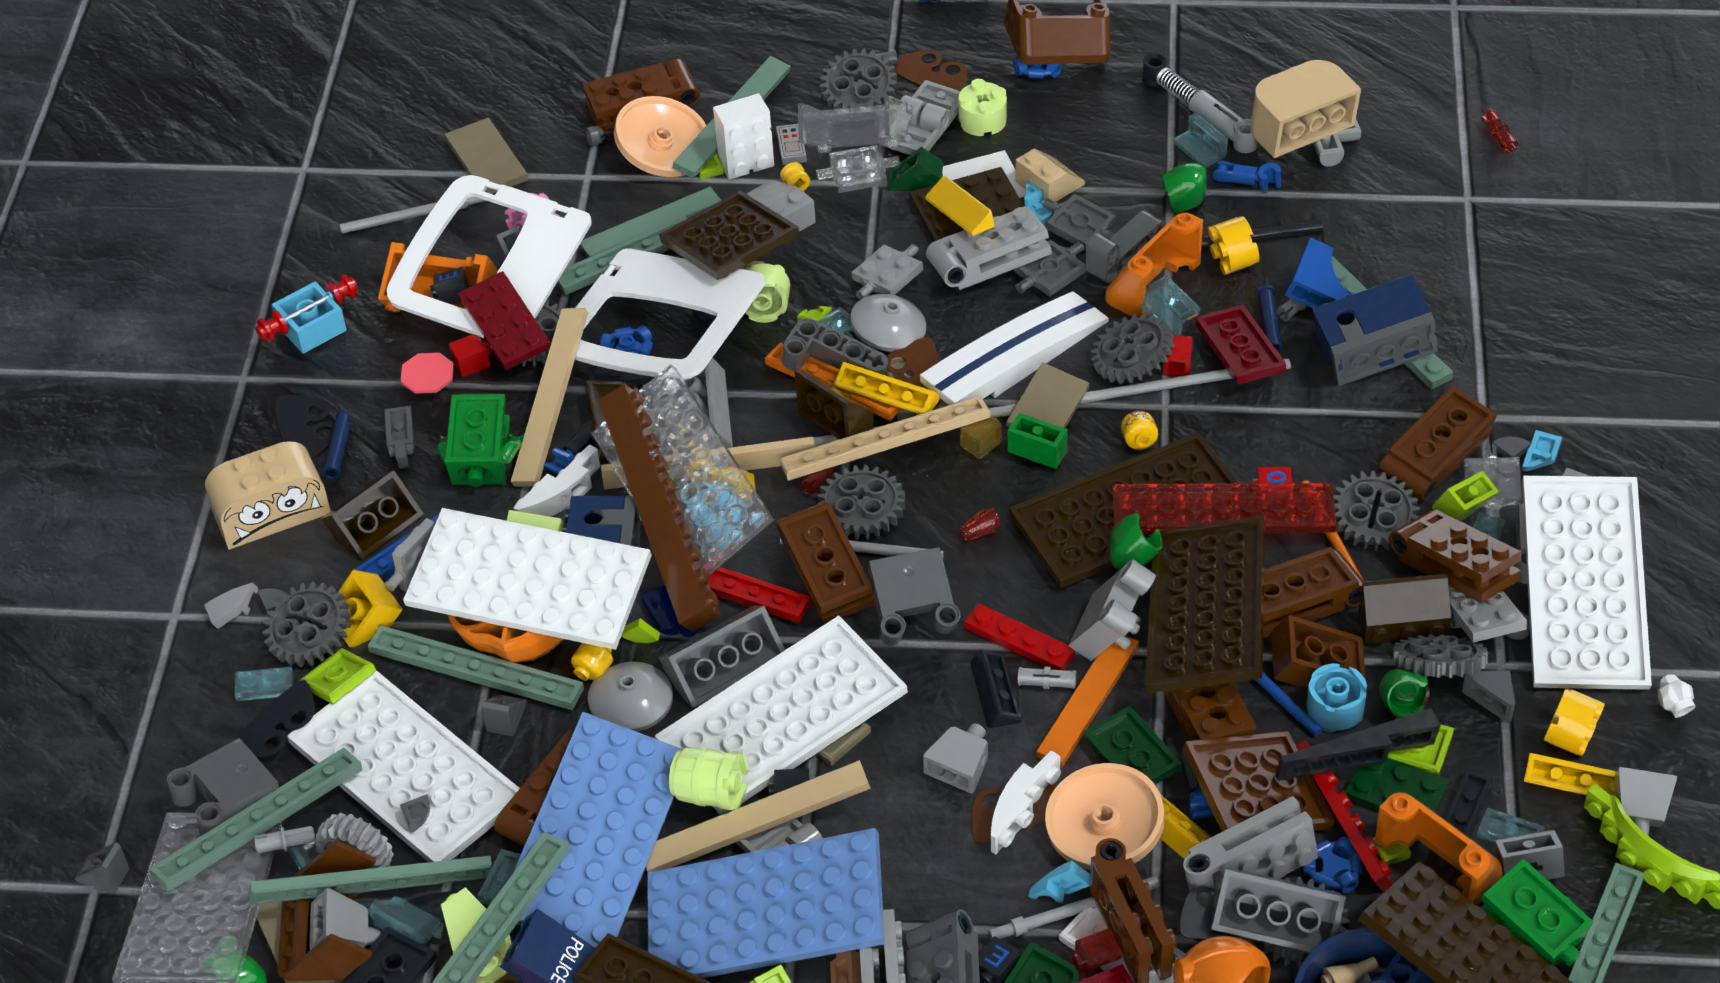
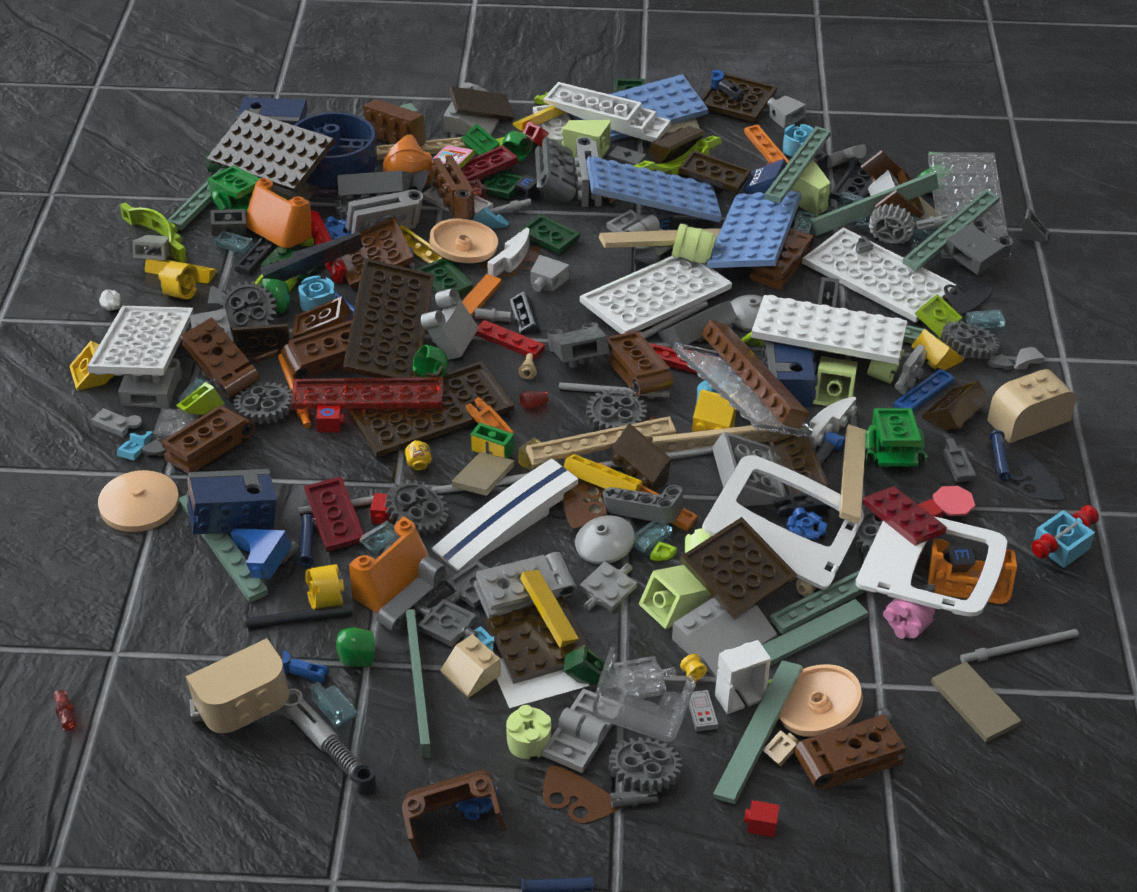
camera: 175 degrees right, 5 degrees down
(705, 101) = (781, 747): none -> tan bracket
(743, 42) = (762, 818): none -> red brick
(810, 253) = (672, 595): none -> yellowish green slope
(955, 854) = (551, 234): none -> dark green plate
(989, 578) = (527, 369): none -> tan cone
(1043, 476) = (487, 415): none -> orange hinge
(1108, 157) = (418, 684): none -> sand green tile
(1507, 374) = (138, 501): none -> light nougat dish
(1661, 572) = (80, 373): none -> yellow slope

